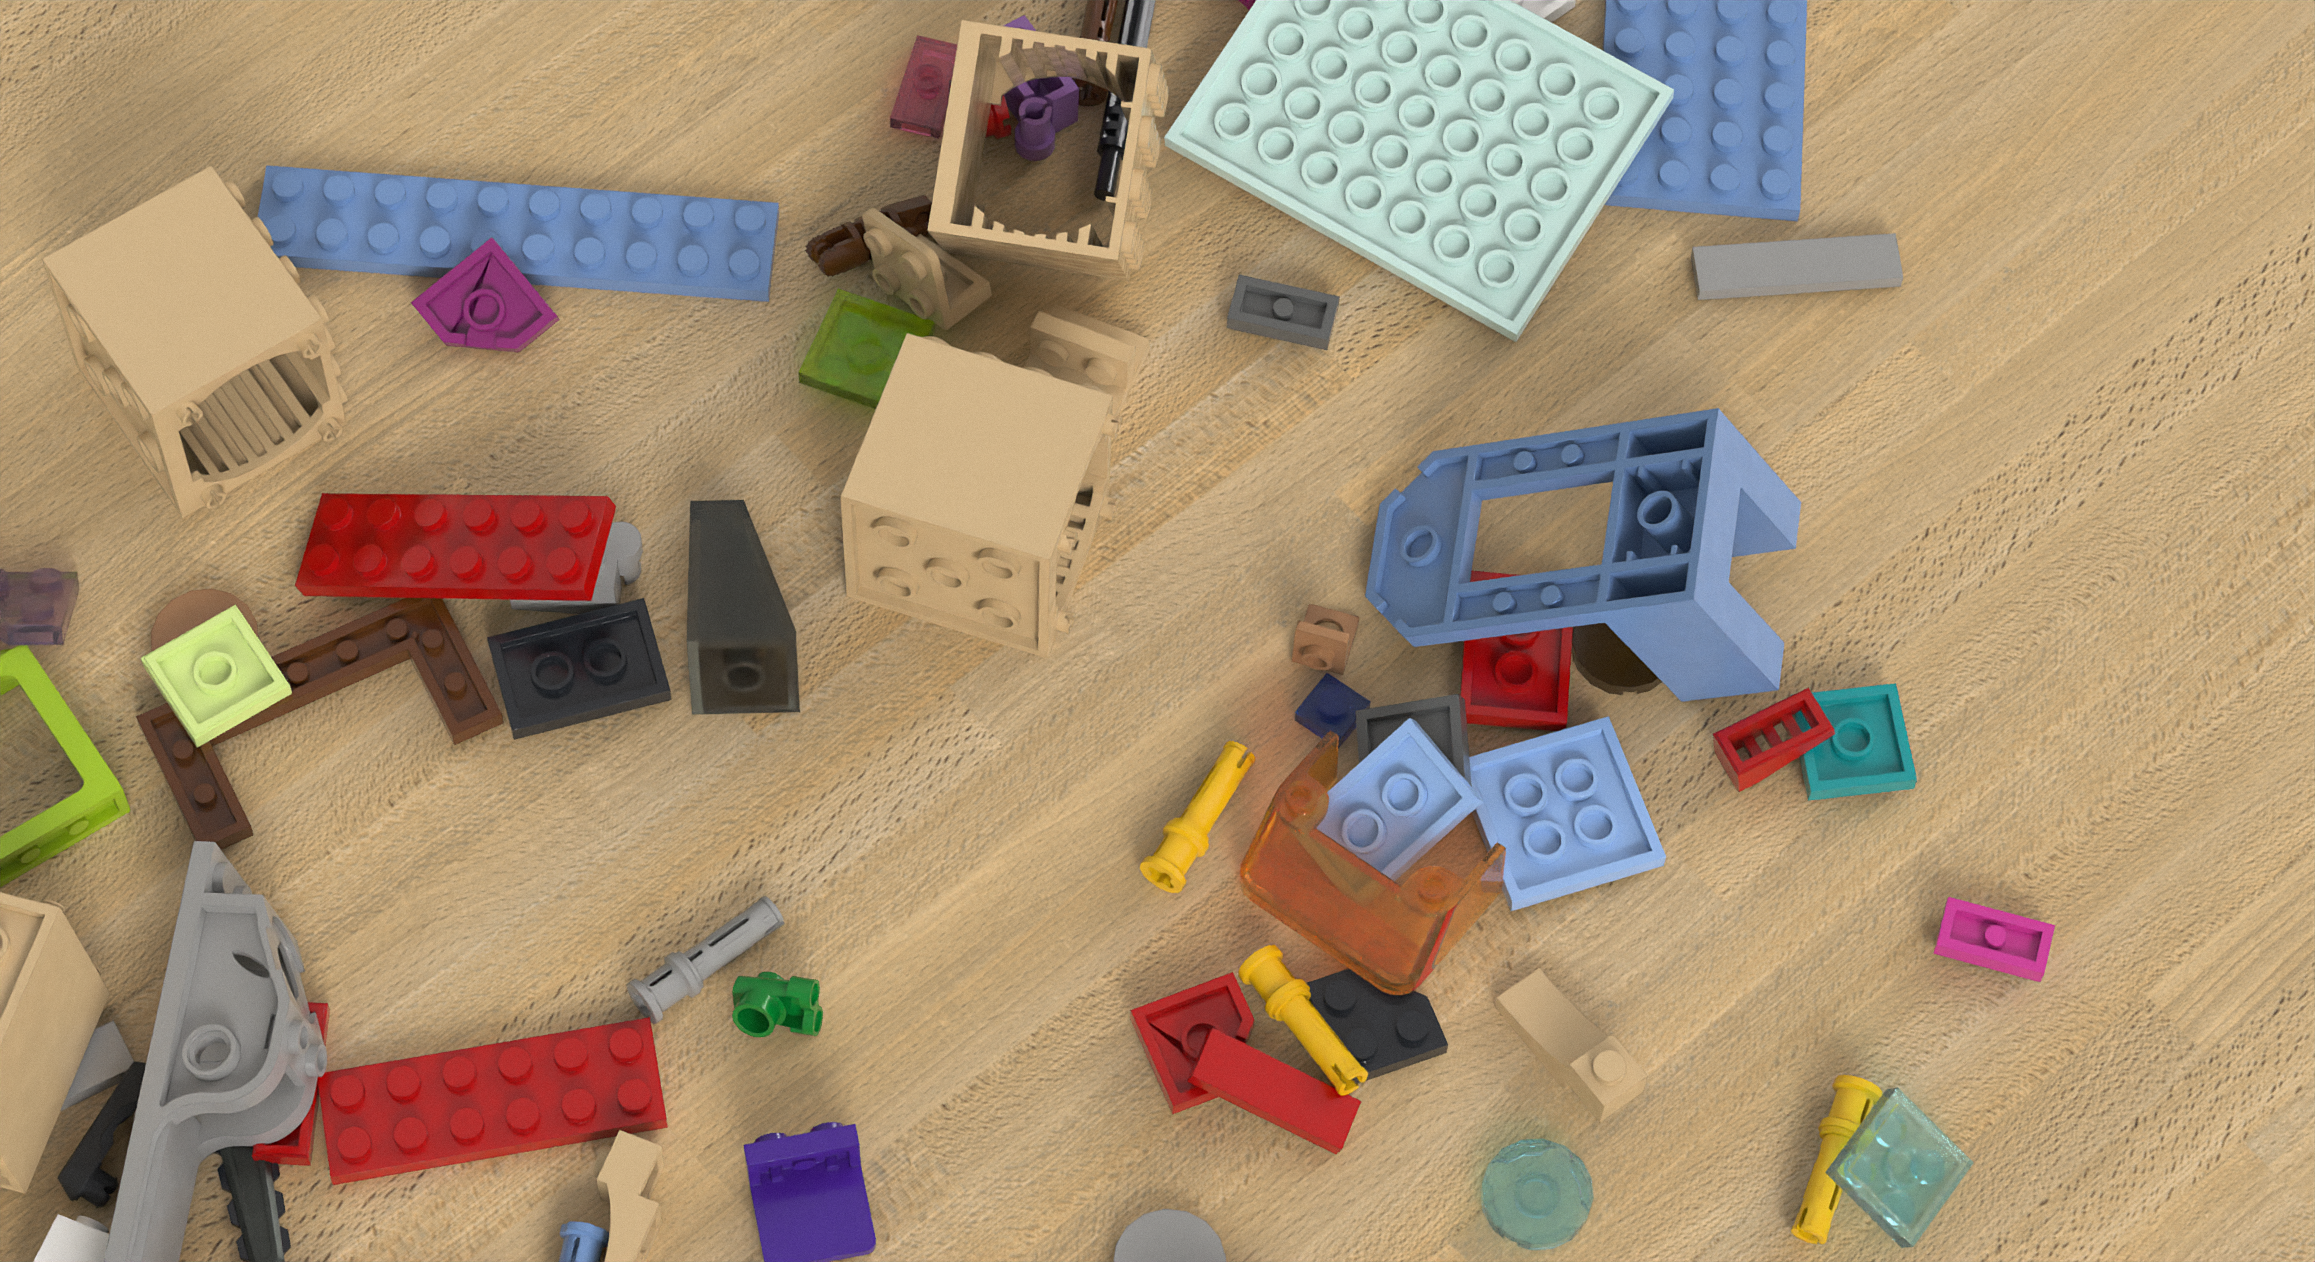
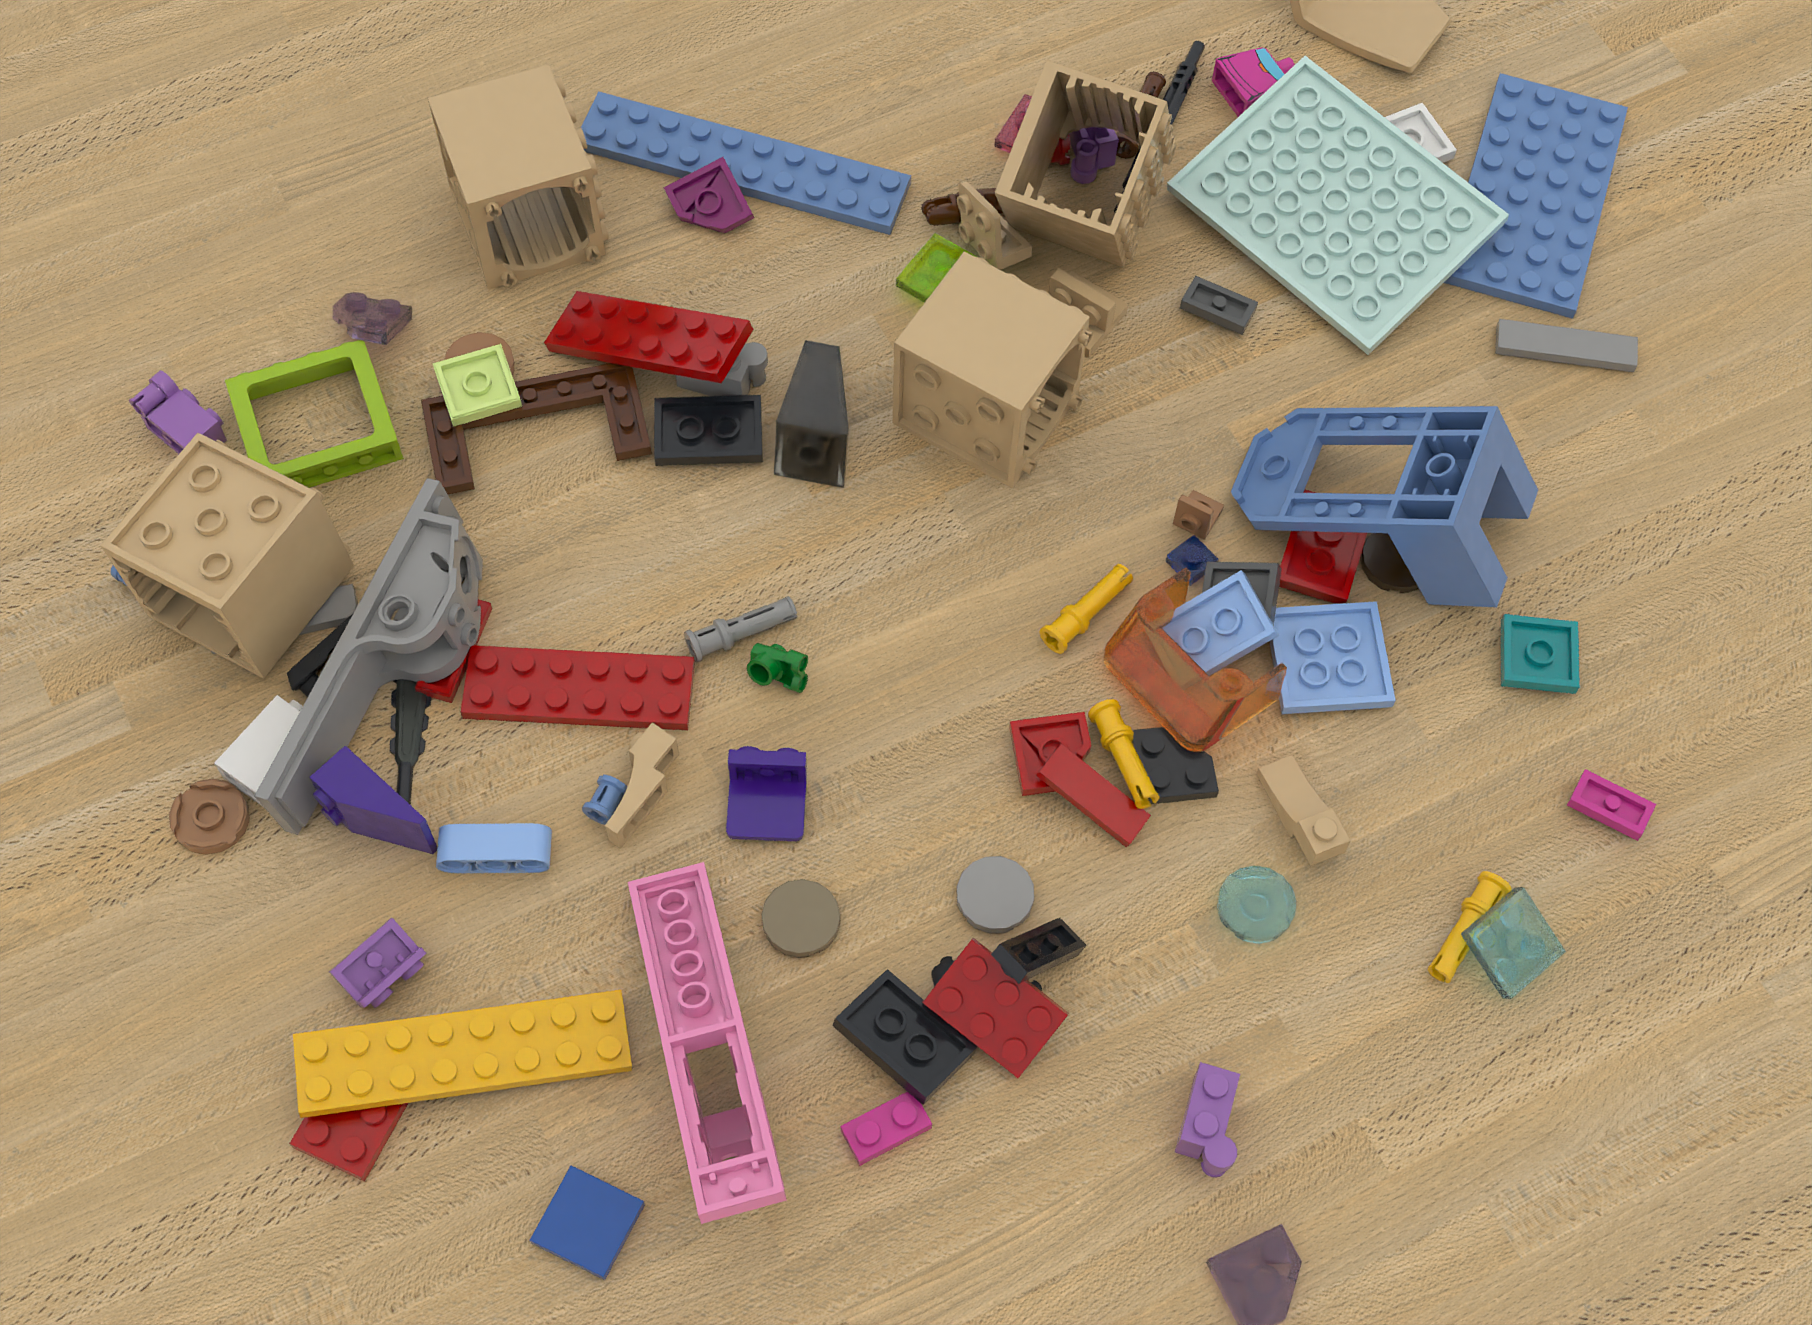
camera: 15 degrees right, 0 degrees up
(1781, 753) = (1475, 654): red slope -> none

